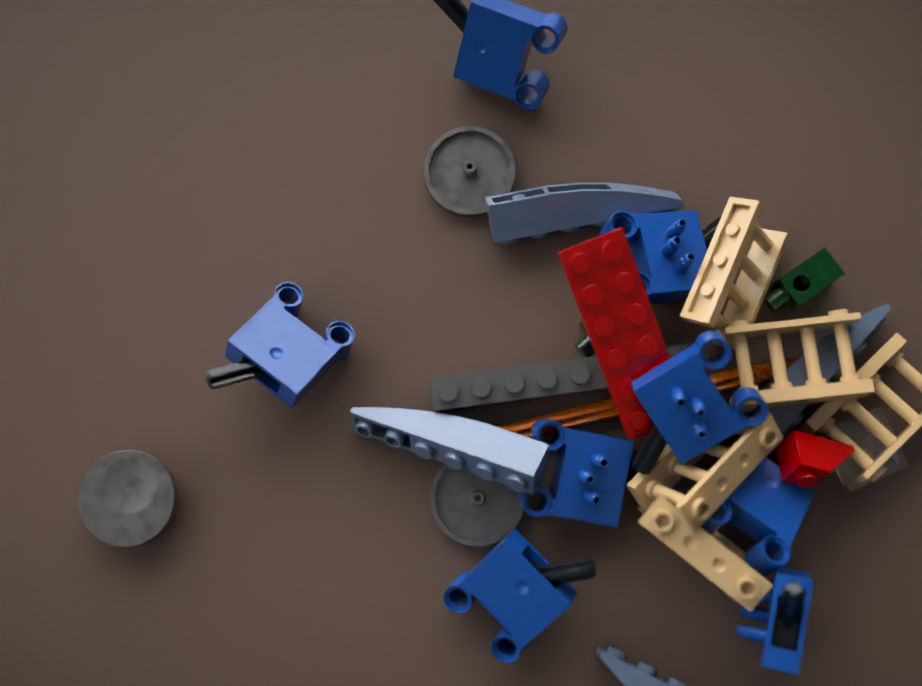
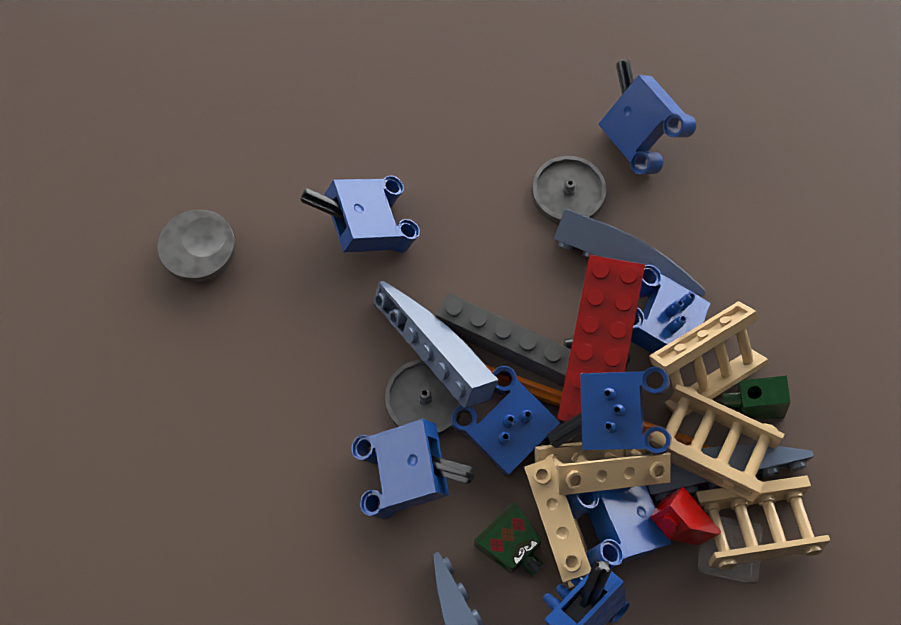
camera: 30 degrees right, 15 degrees down
(660, 588) = (511, 542): none -> dark green torso

